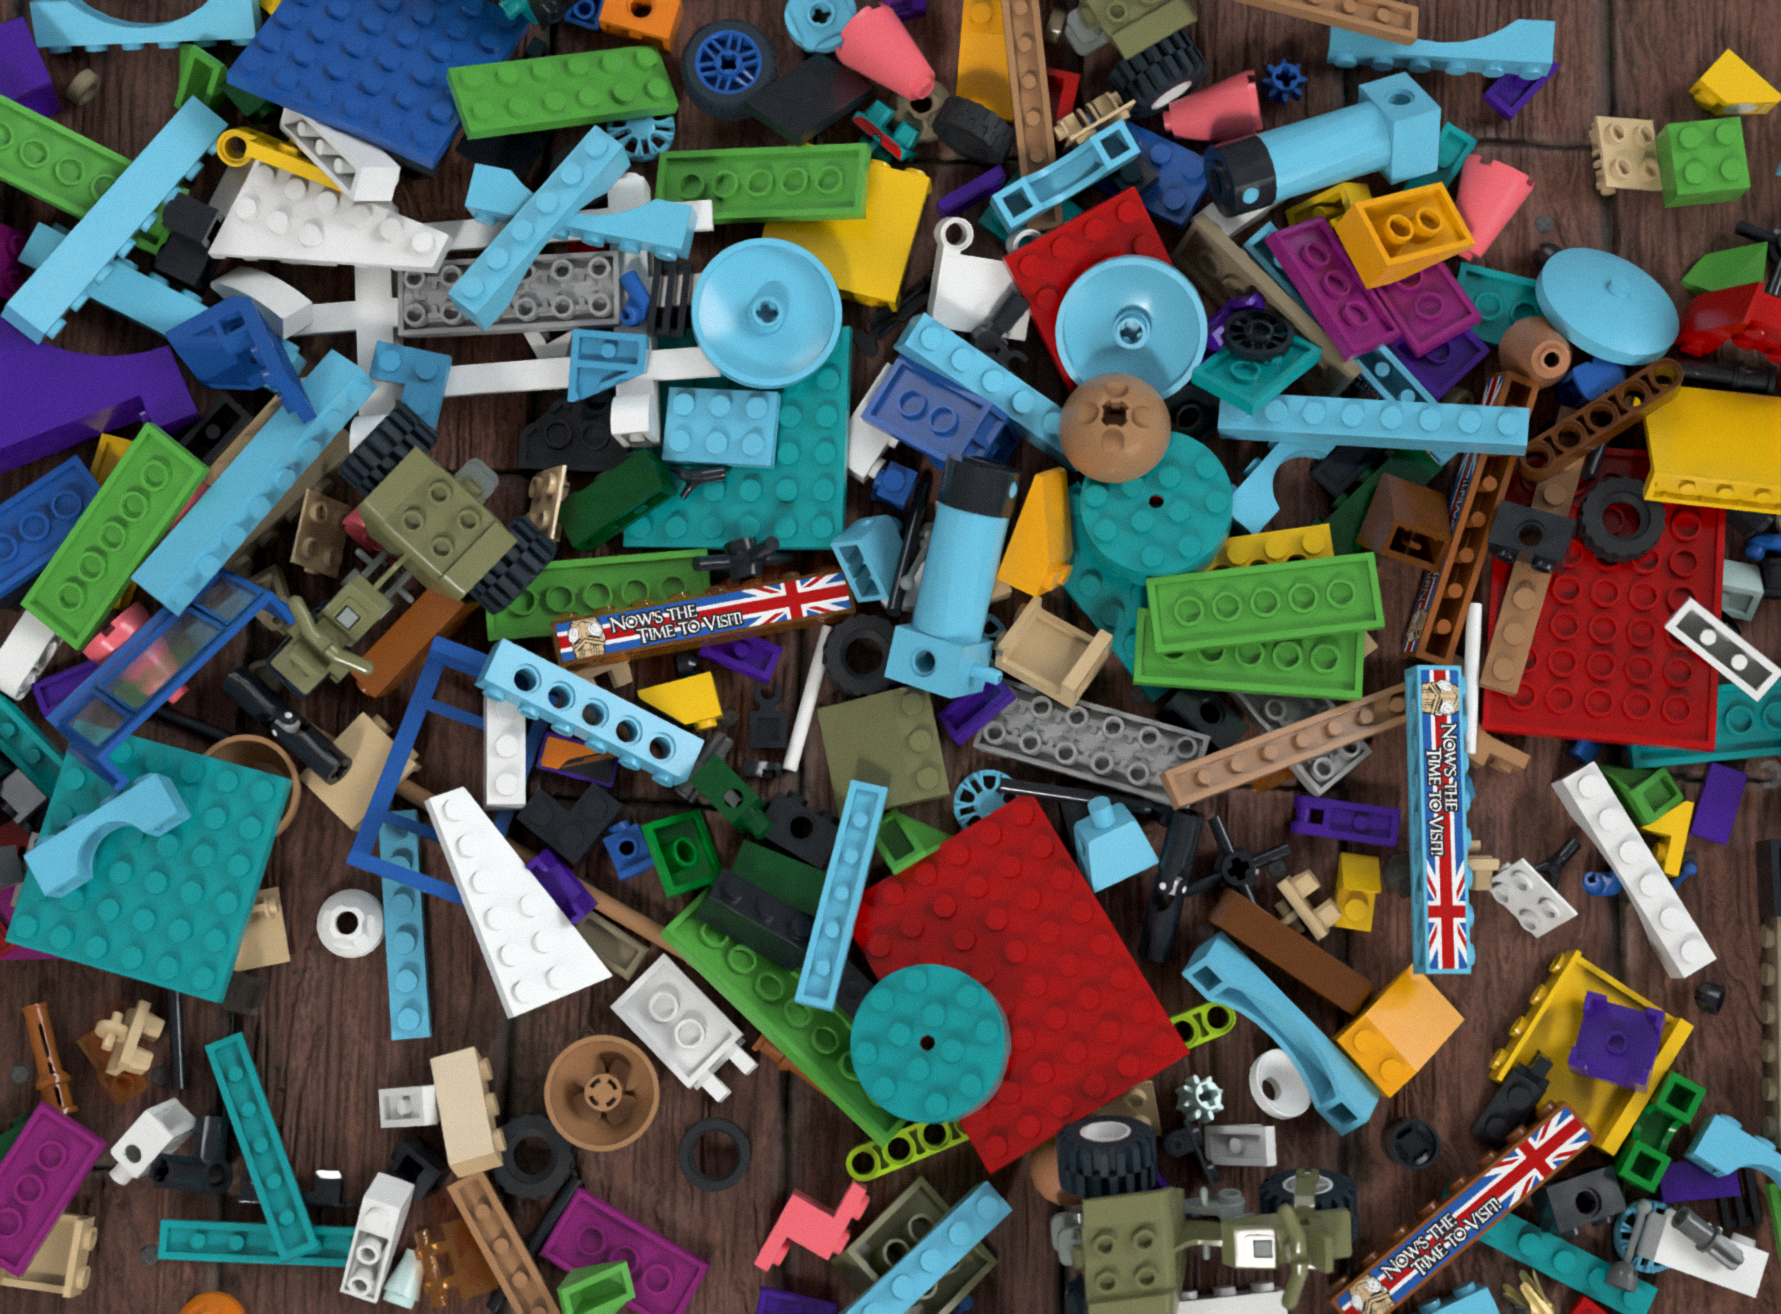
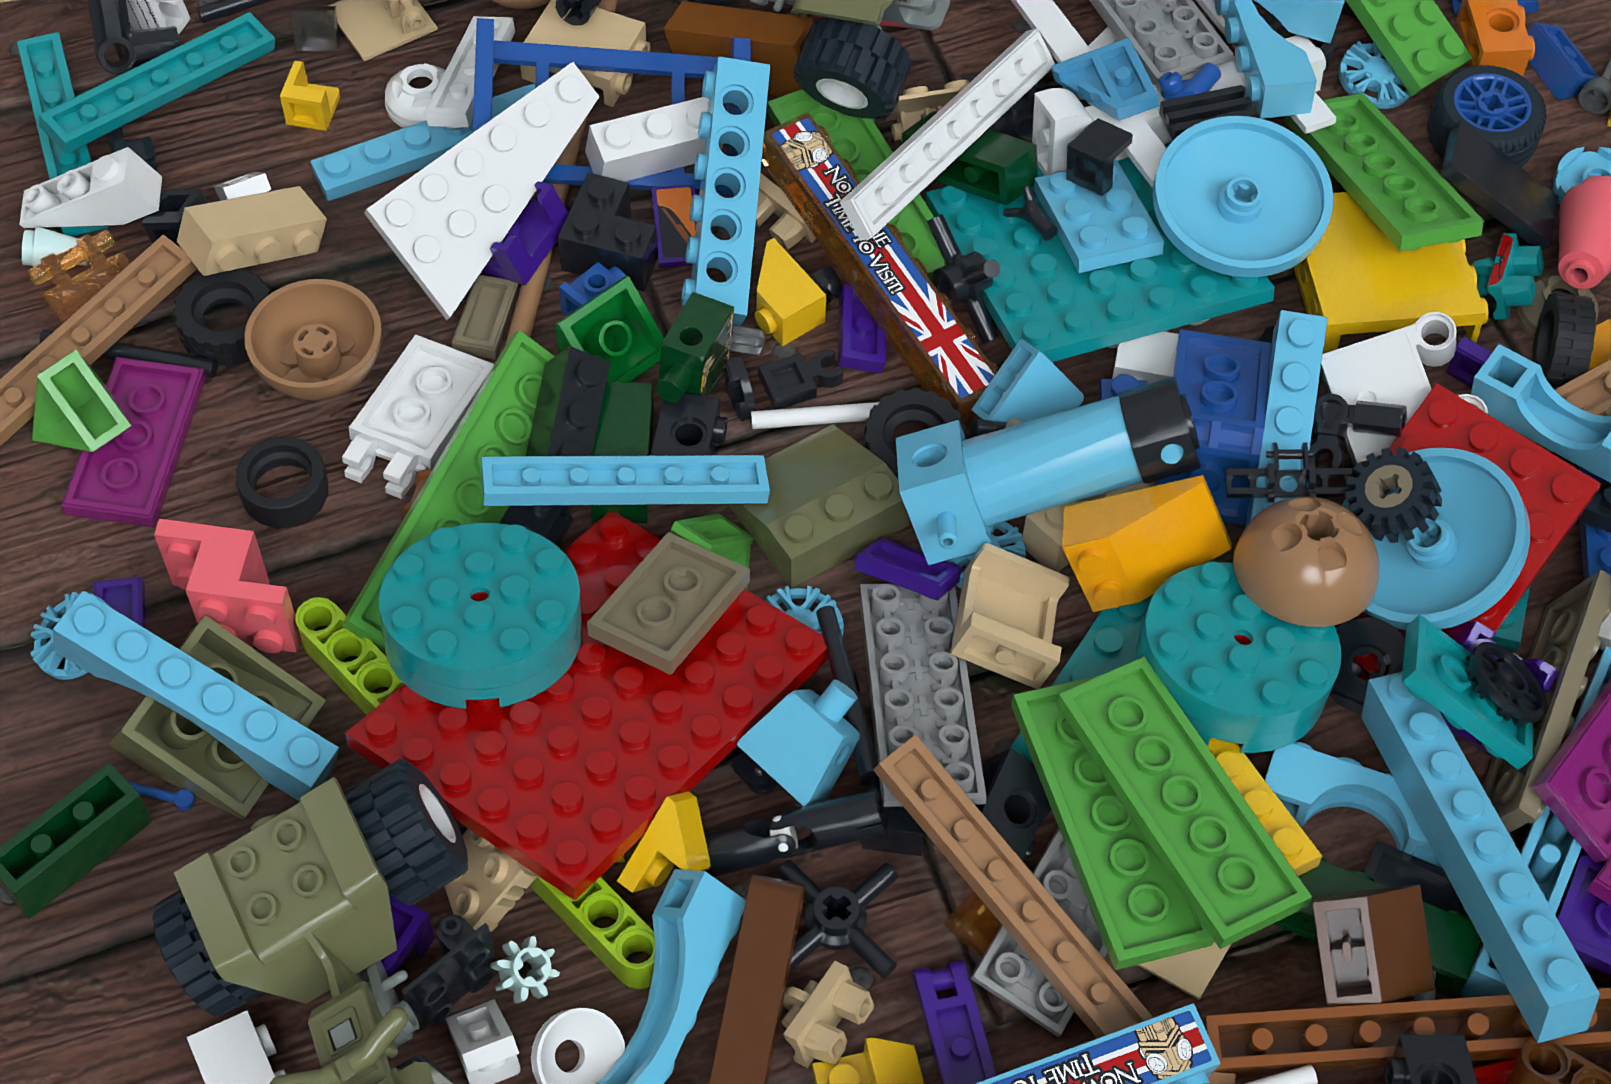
camera: 70 degrees right, 25 degrees down
(321, 1020) = (307, 103): none -> yellow panel
(327, 860) = (454, 97): none -> white plate
(611, 514) = (946, 135): none -> white tile
(680, 406) = (1093, 155): none -> black panel
(963, 900) = (669, 603): none -> dark tan plate
(1031, 414) = (1273, 475): none -> black piece
(1089, 328) = (1397, 512): none -> black wheel
(1158, 964) = (671, 839): none -> yellow slope

